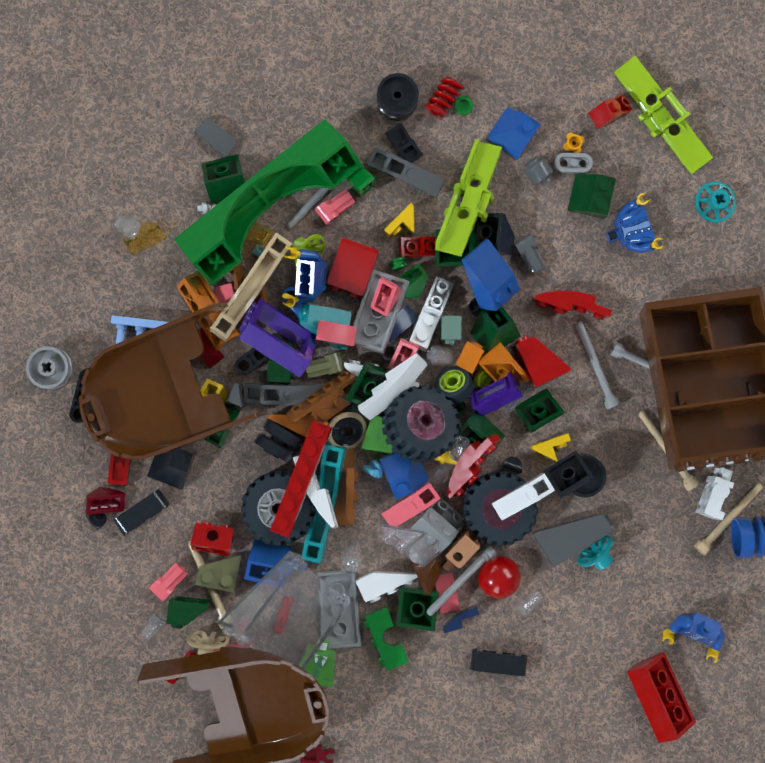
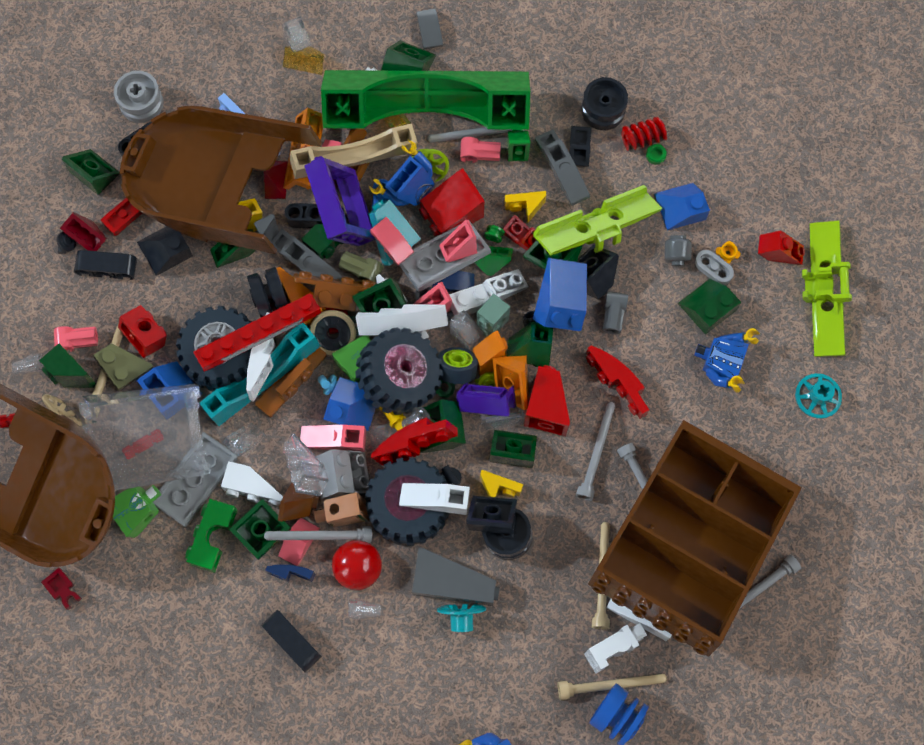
camera: 40 degrees right, 15 degrees down
(65, 450) = (90, 169): none -> dark green slope

